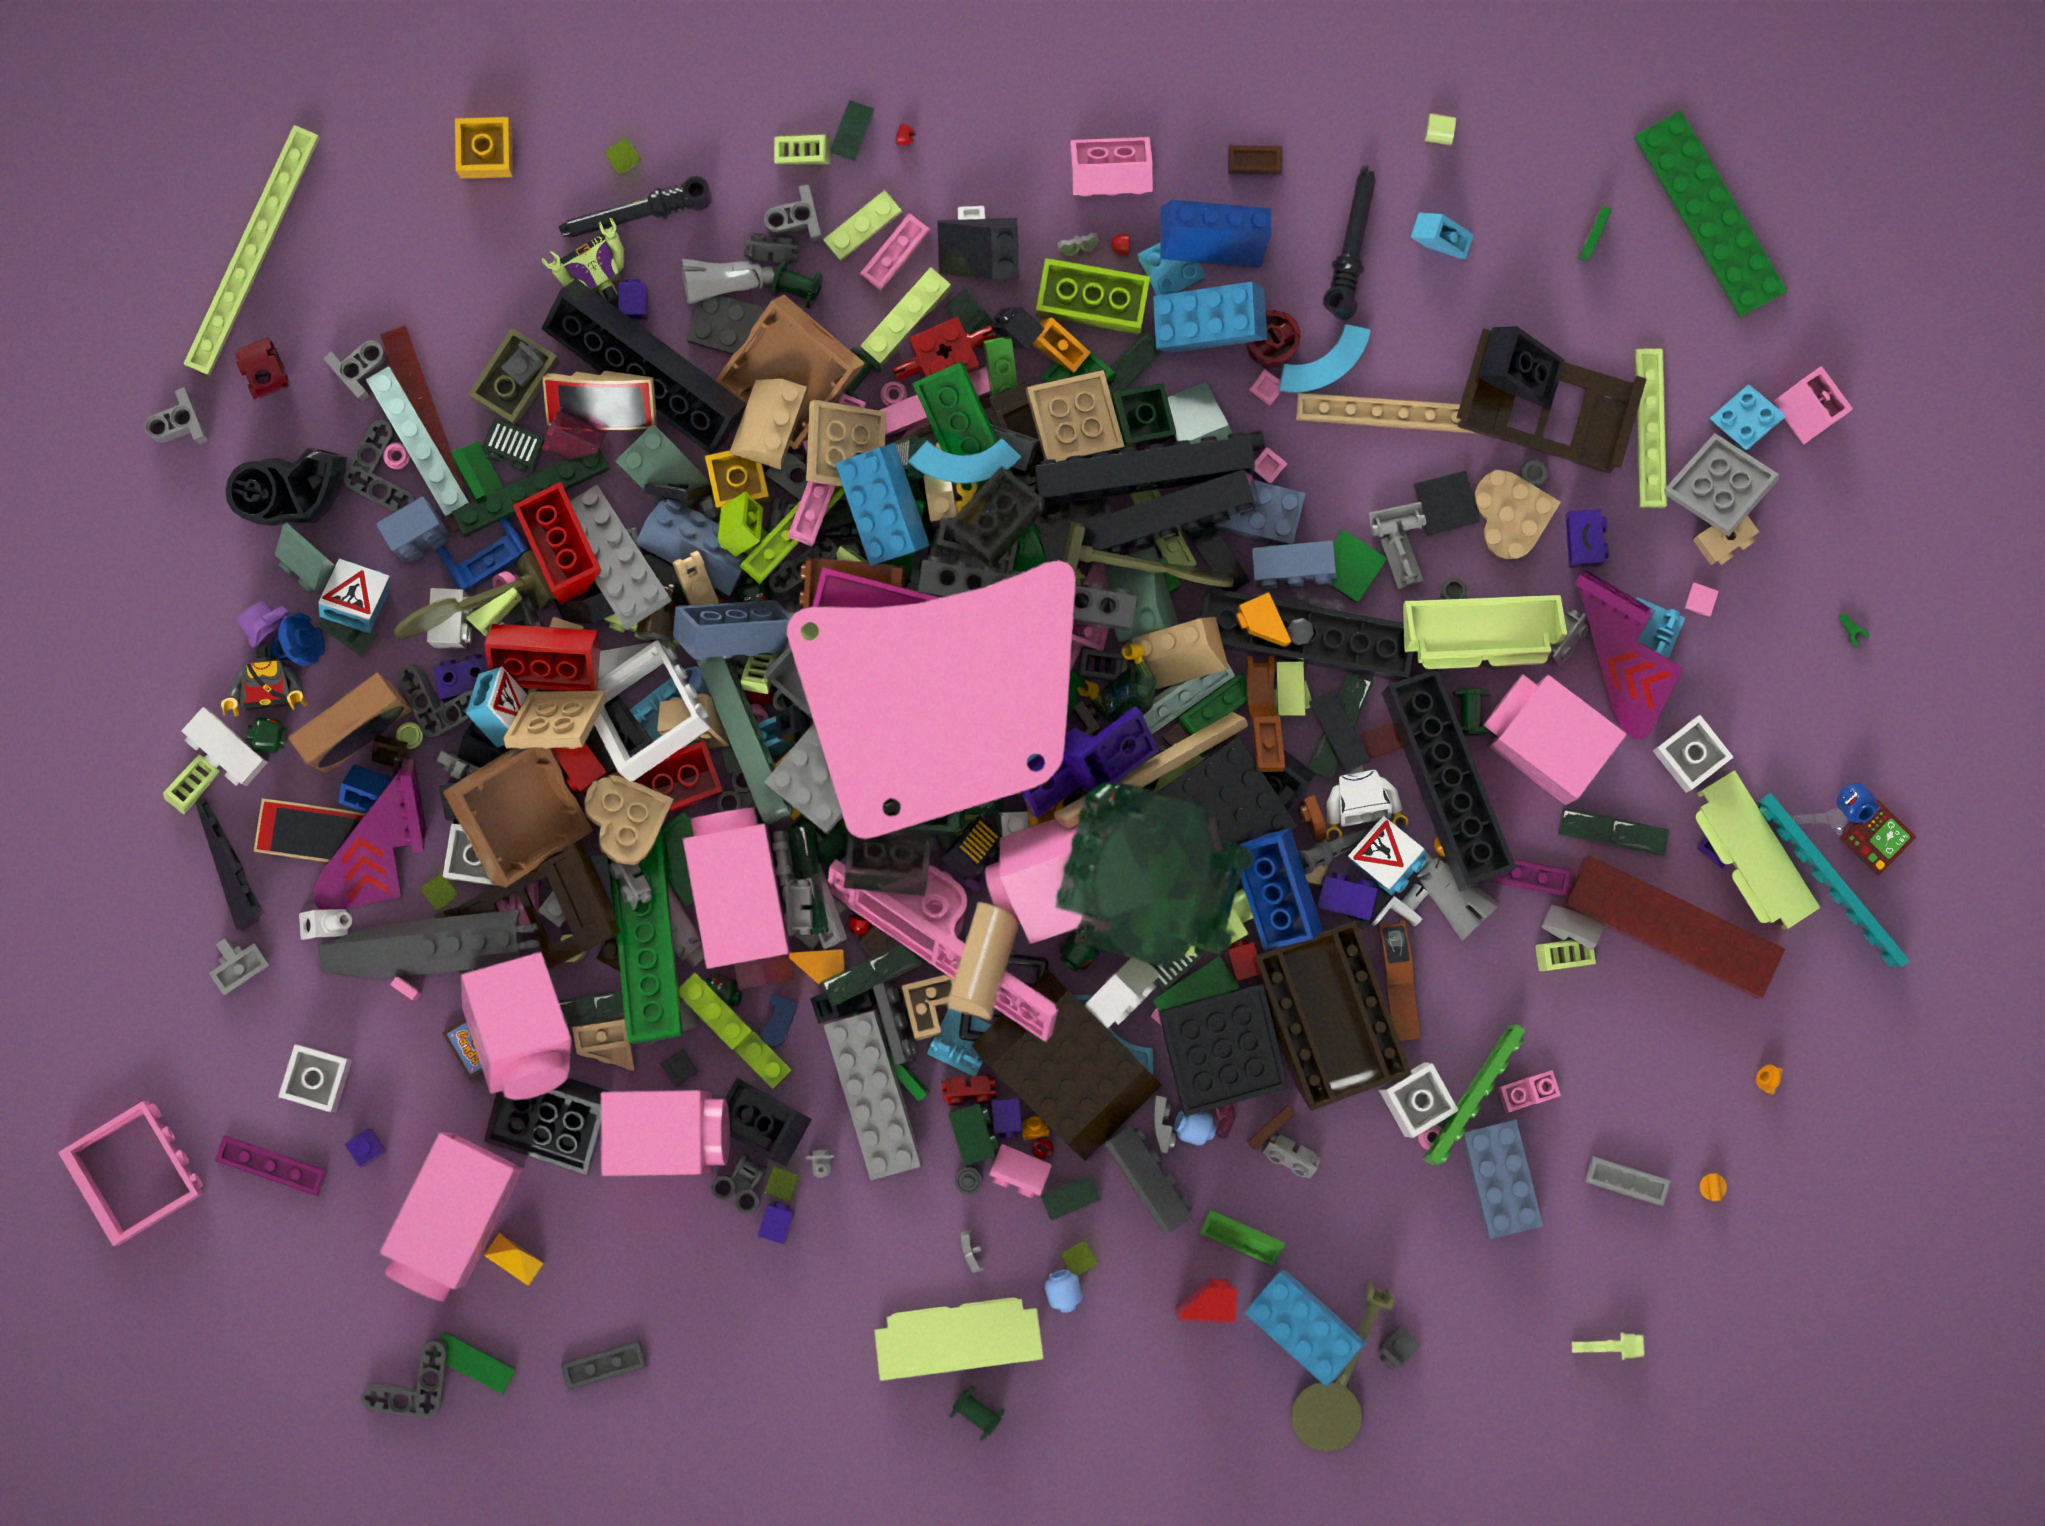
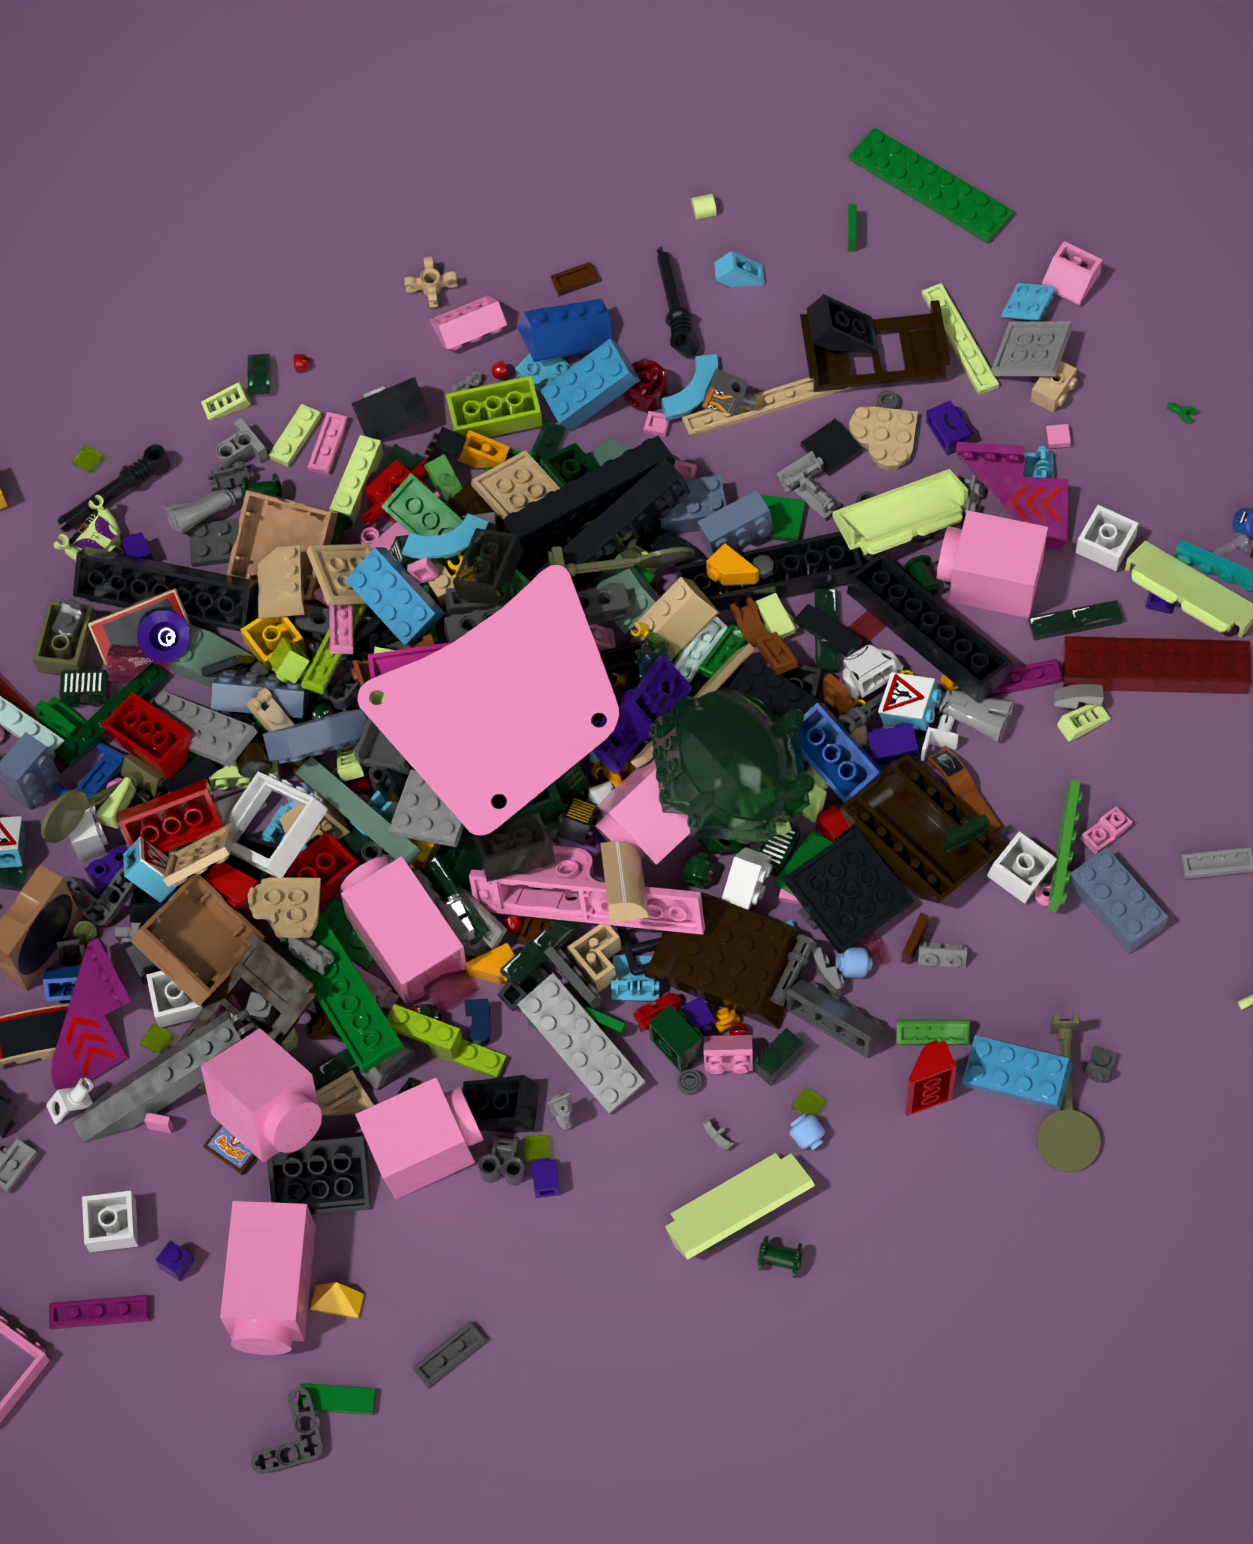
camera: 15 degrees left, 20 degrees down
(608, 435) = (155, 632): none -> dark purple hat
(925, 486) = (423, 570): none -> bright pink tile
(1071, 90) = (430, 275): none -> tan pin
(1135, 1105) = (795, 958): none -> dark grey pin
(1351, 387) = (727, 393): none -> dark grey torso
(1384, 1043) = (969, 831): none -> clear green plate

